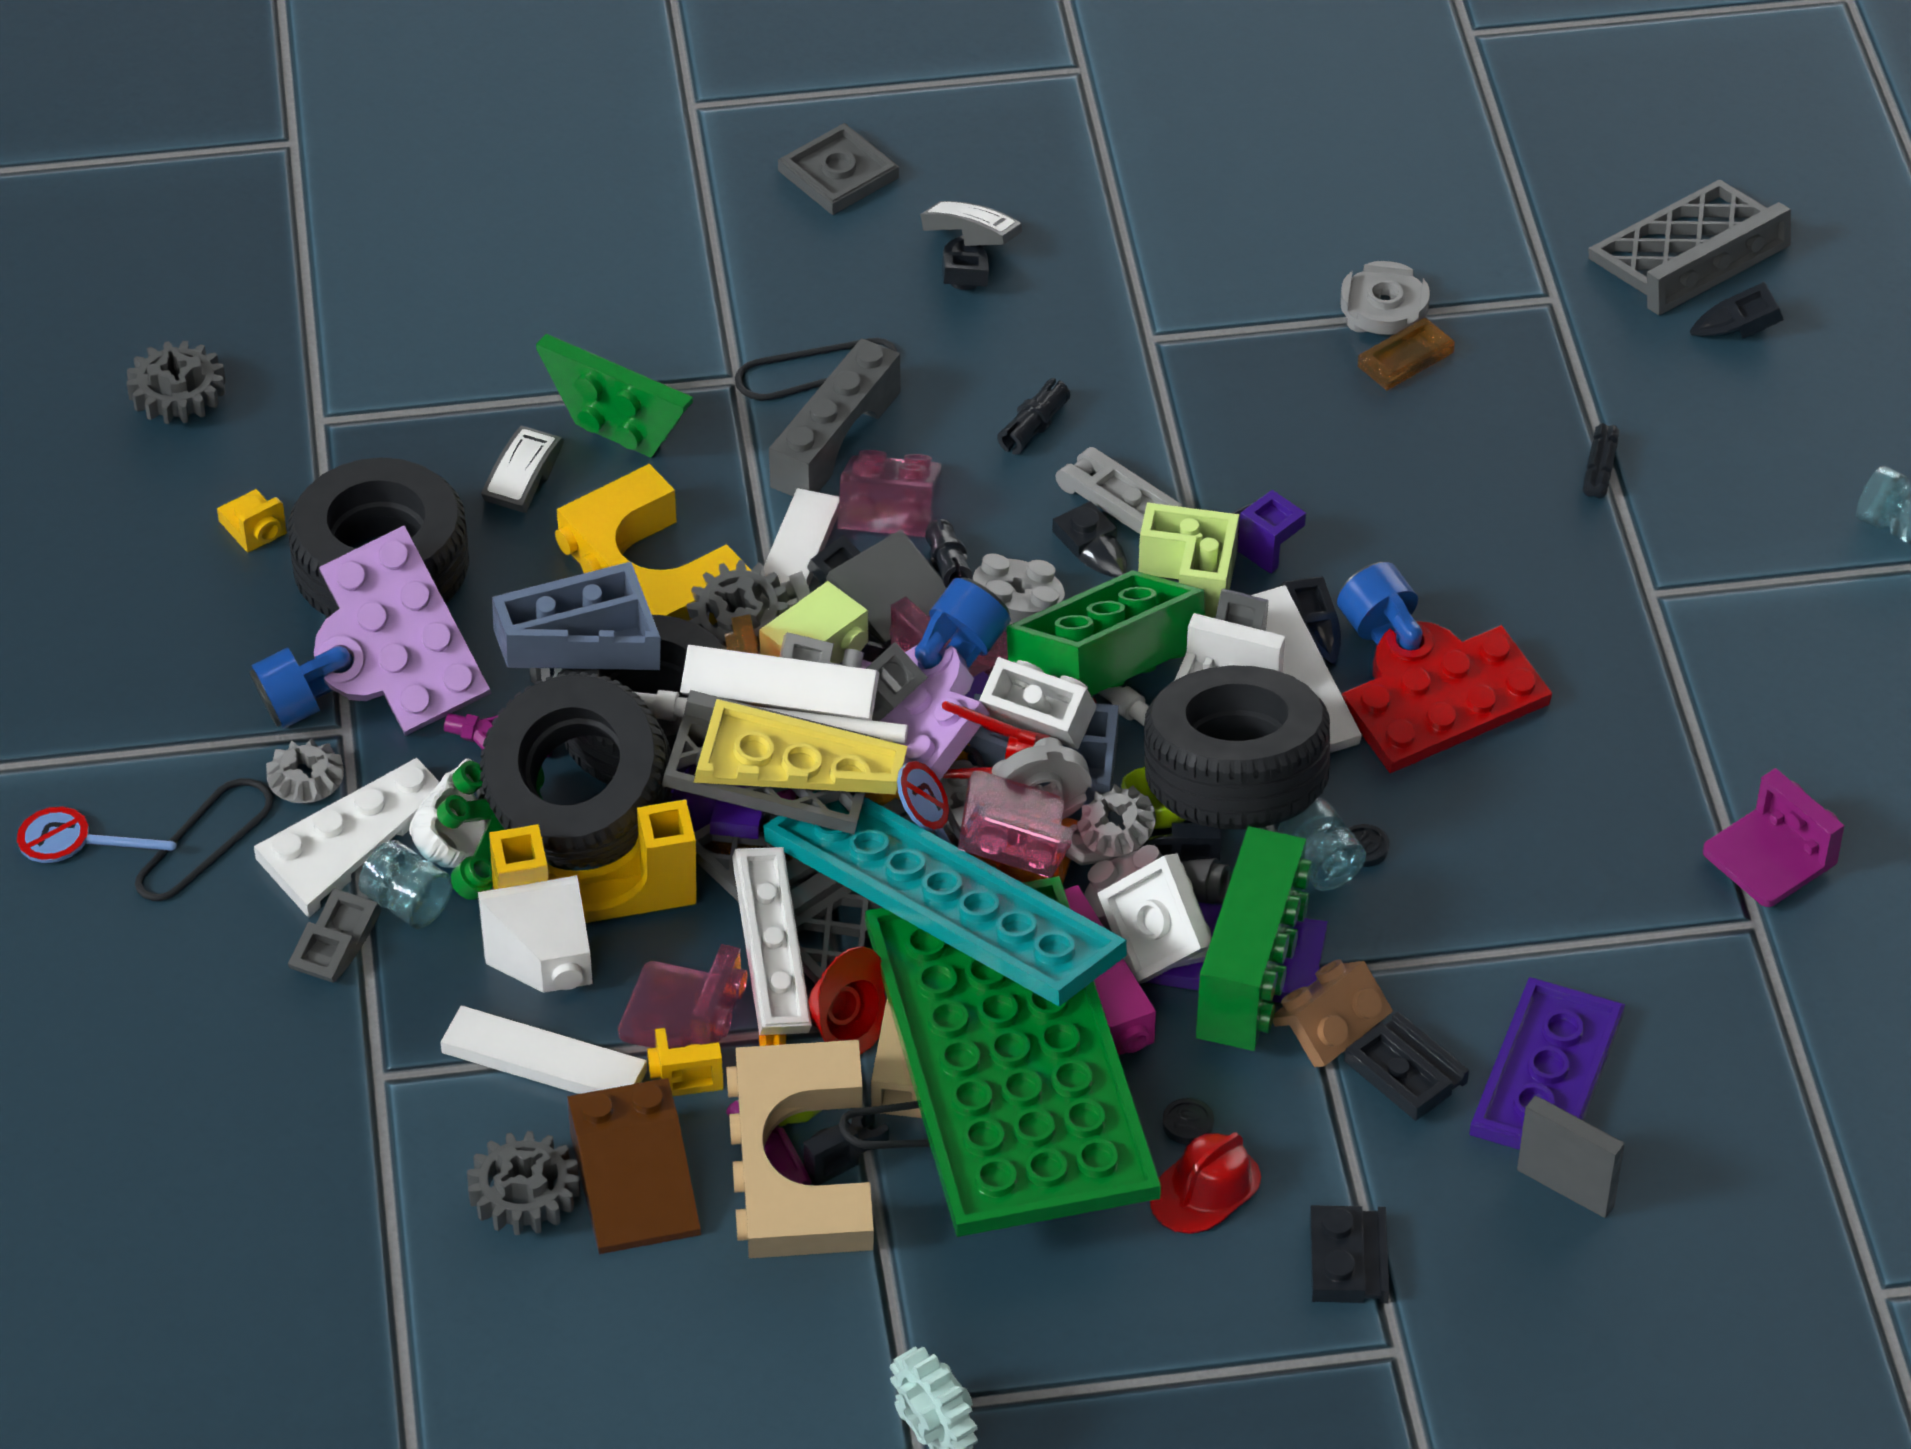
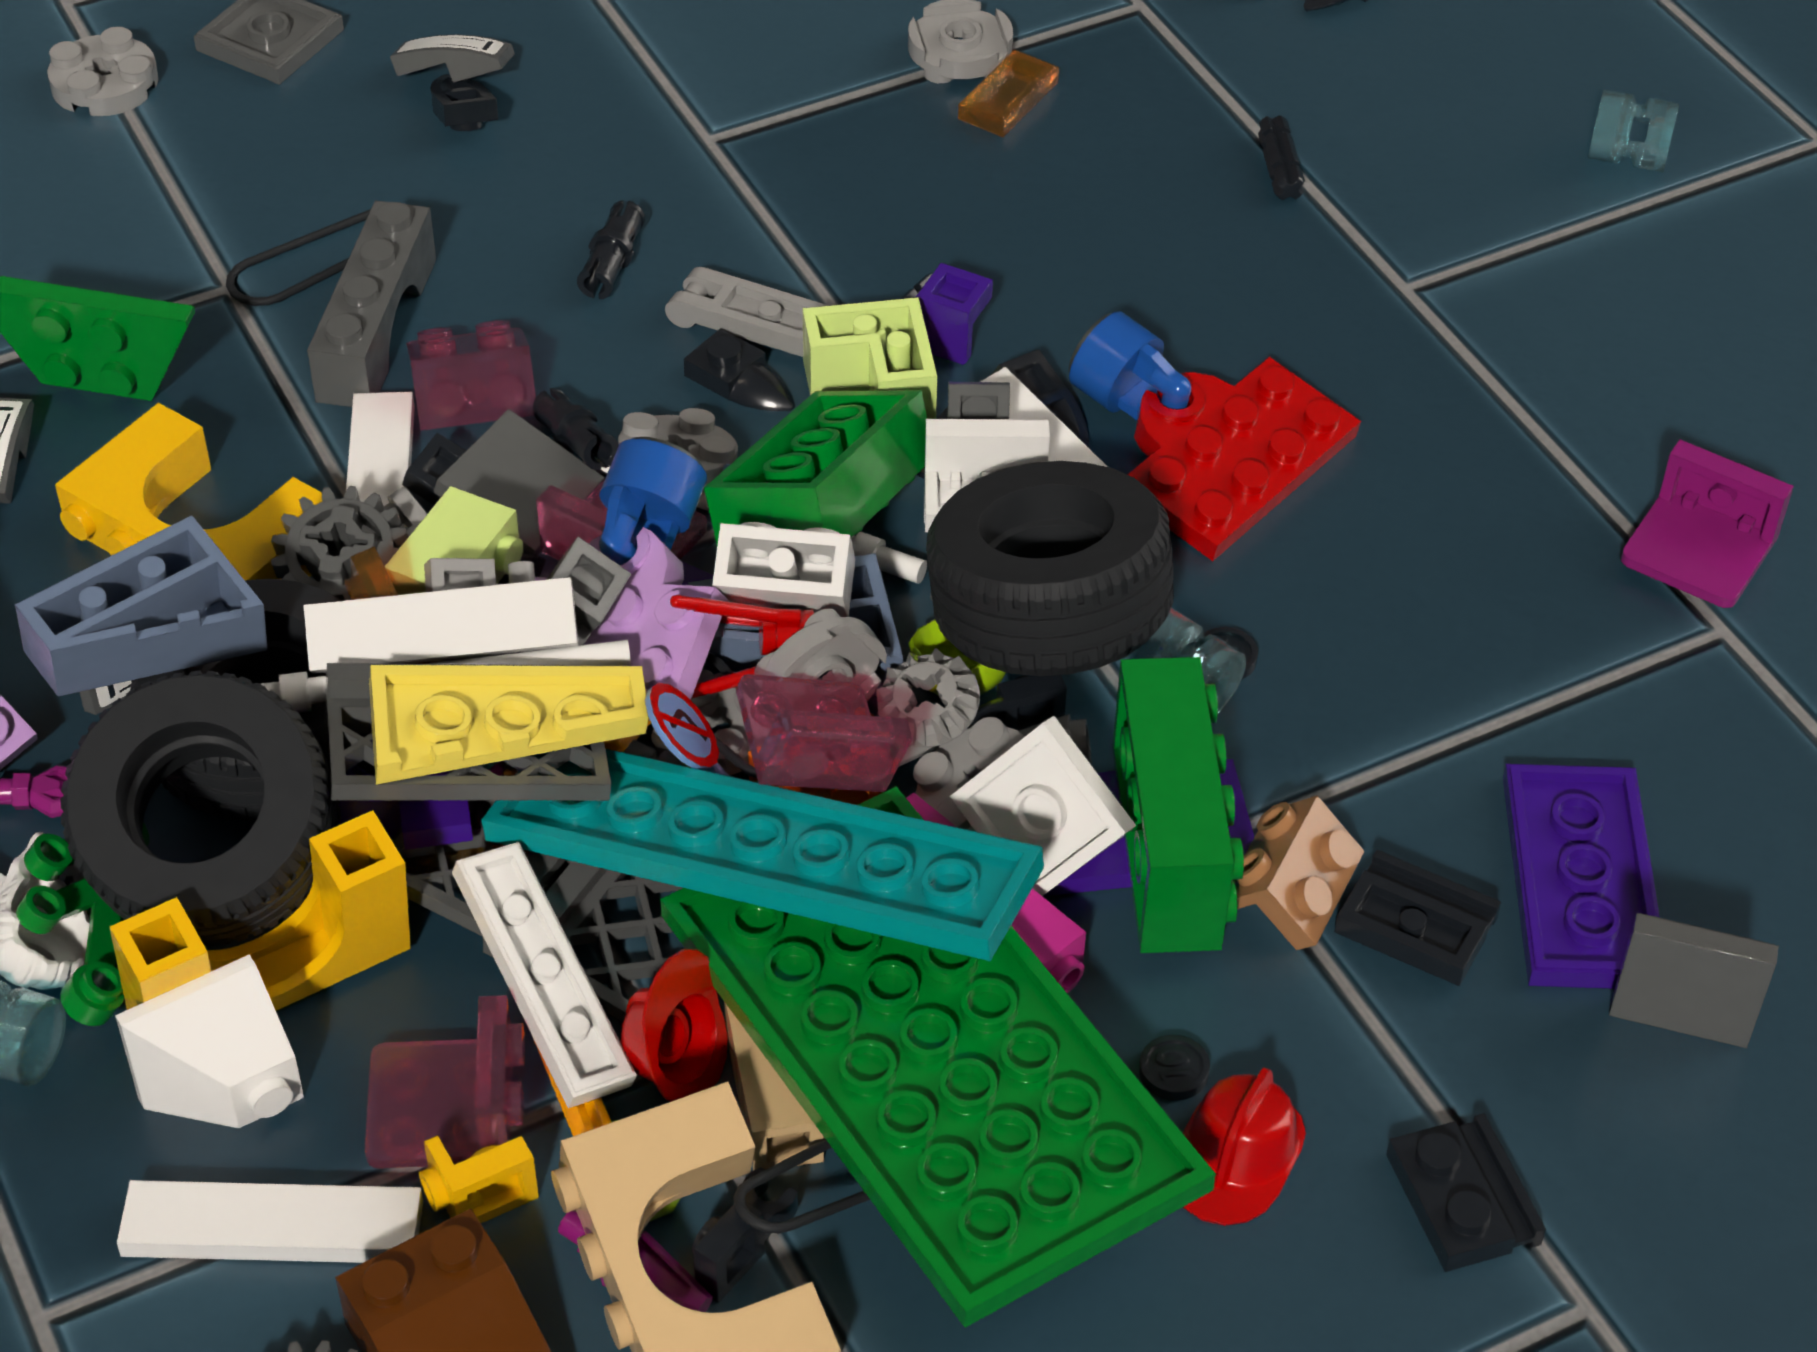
camera: 20 degrees left, 0 degrees up
(681, 164) = (78, 68): none -> light grey plate

